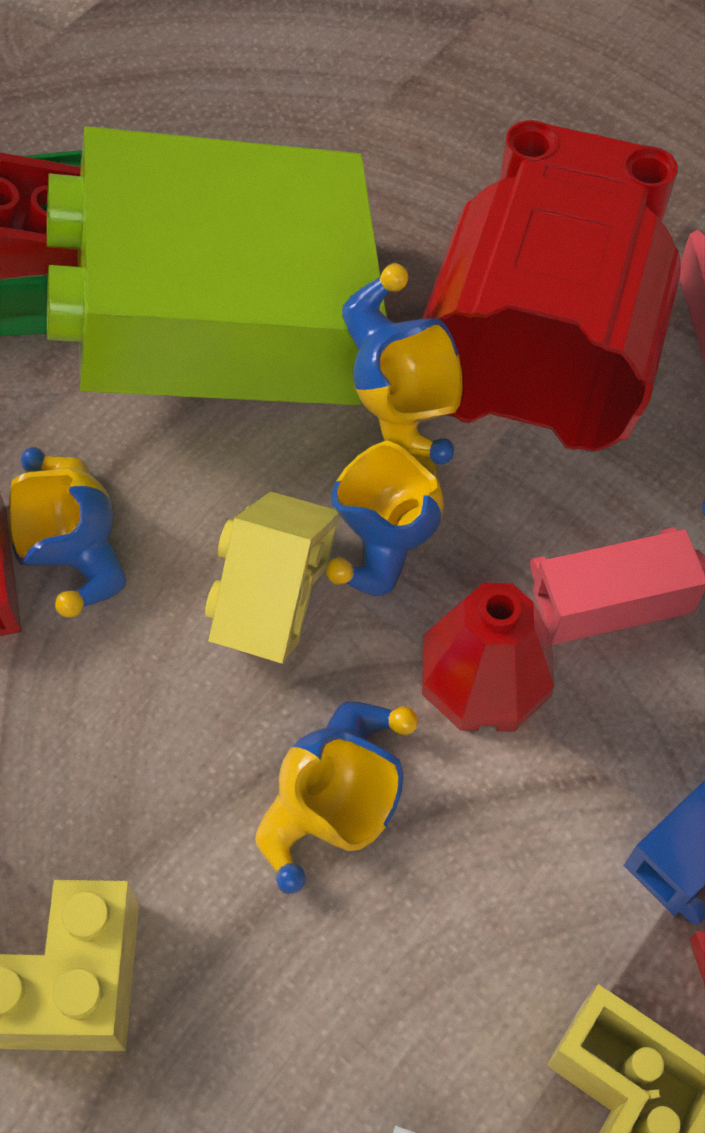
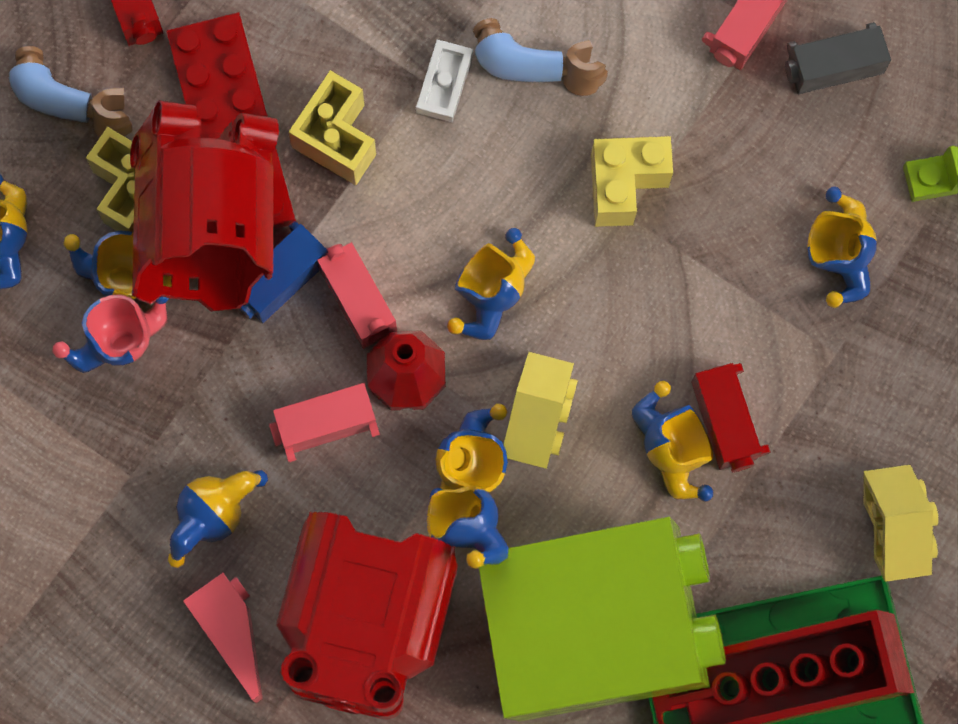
camera: 175 degrees right, 15 degrees up
(576, 782) = (356, 294): none -> coral brick

